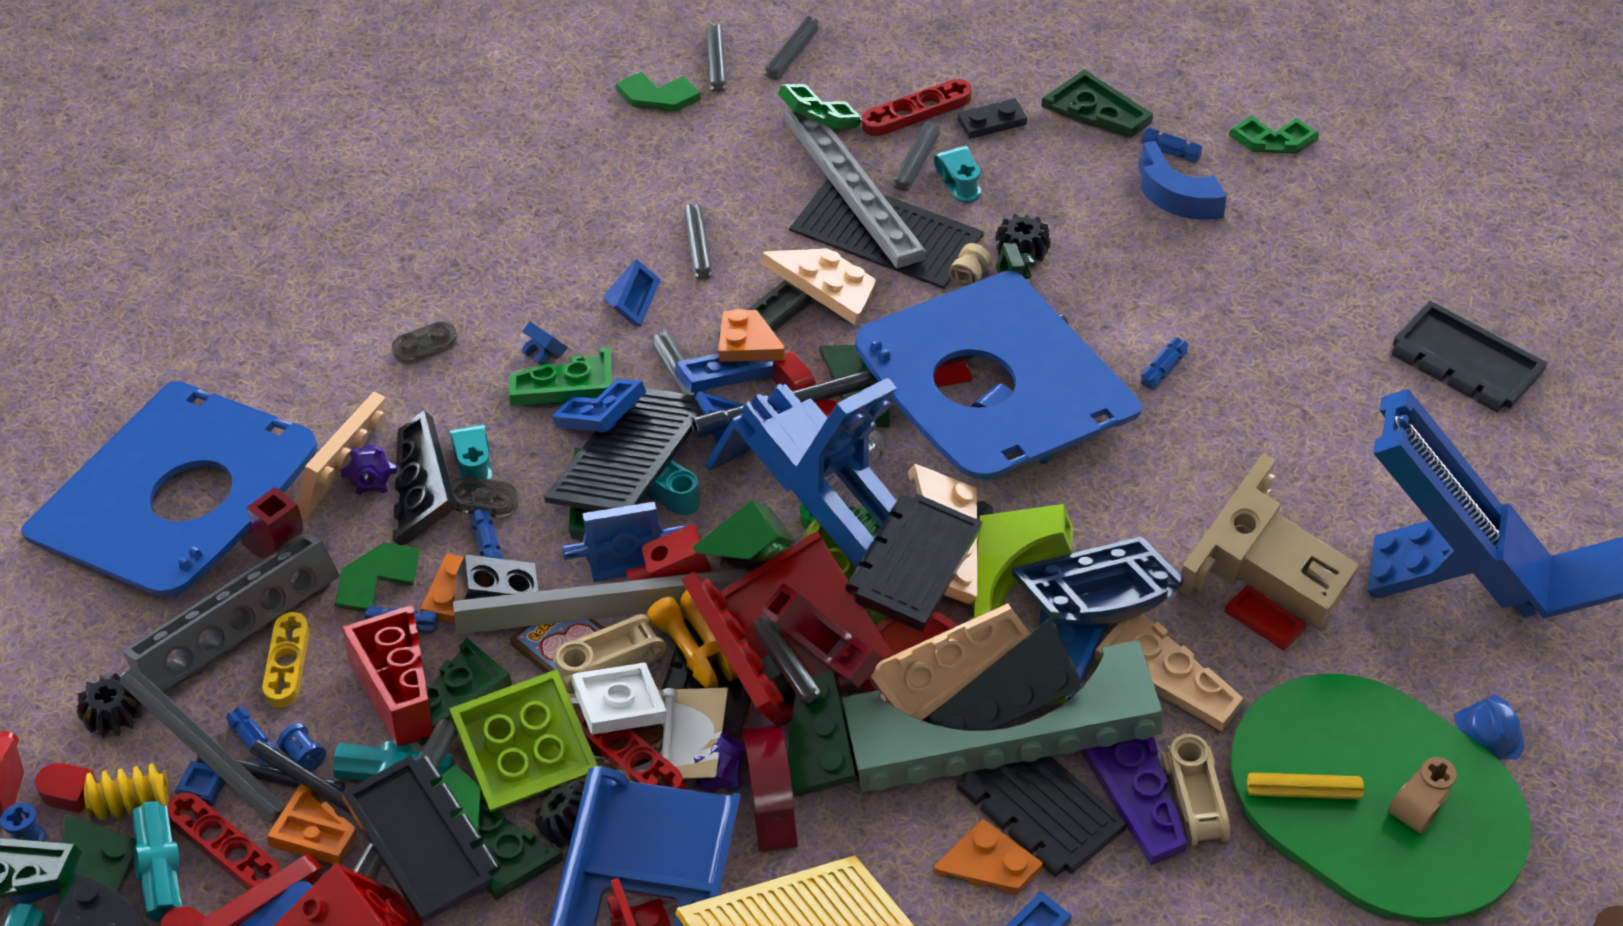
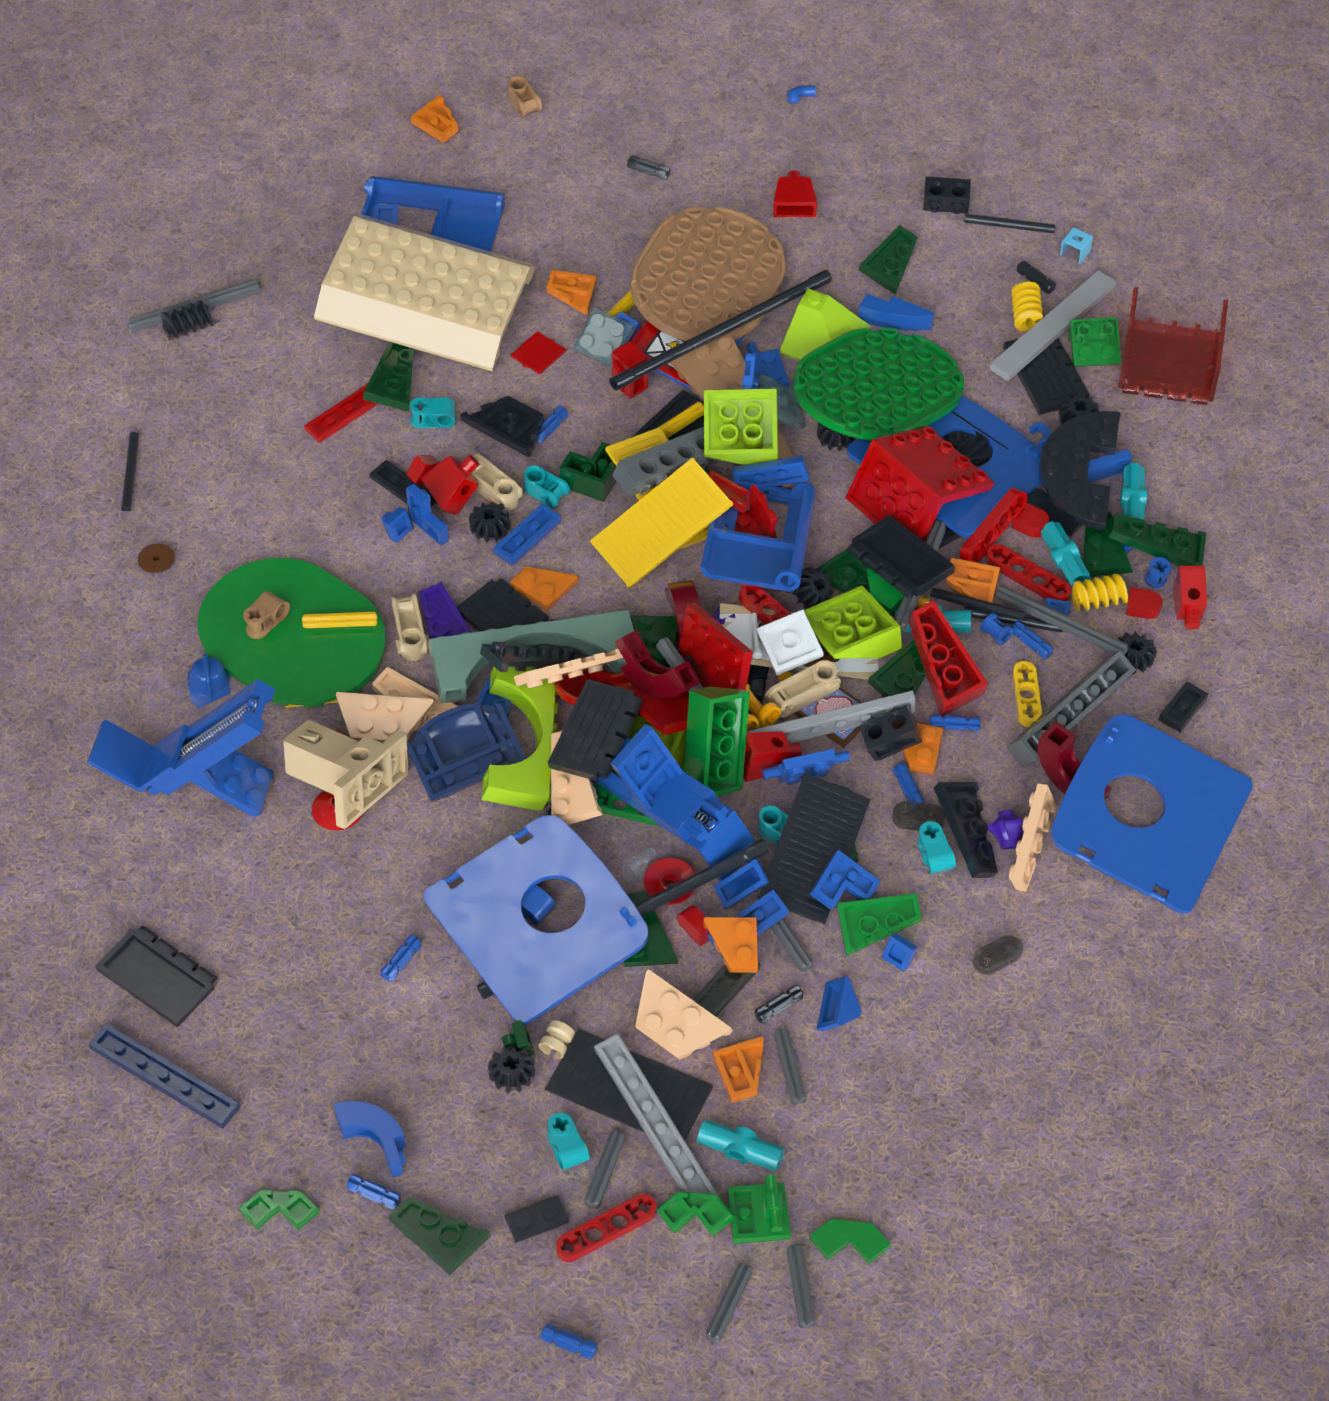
camera: 175 degrees right, 5 degrees up
(71, 628) = (1183, 707): none -> black plate
(385, 563) = (991, 742): green tile -> none
(701, 300) = (778, 1004): none -> black axle
(750, 109) = (759, 1212): none -> green plate
(754, 234) = (740, 1068): none -> orange wing
(764, 165) = (740, 1144): none -> teal piece
(958, 23) = (568, 1341): none -> blue axle
(1224, 642) = (381, 715): none -> light nougat wing
(1433, 250) = (164, 1075): none -> dark blue plate

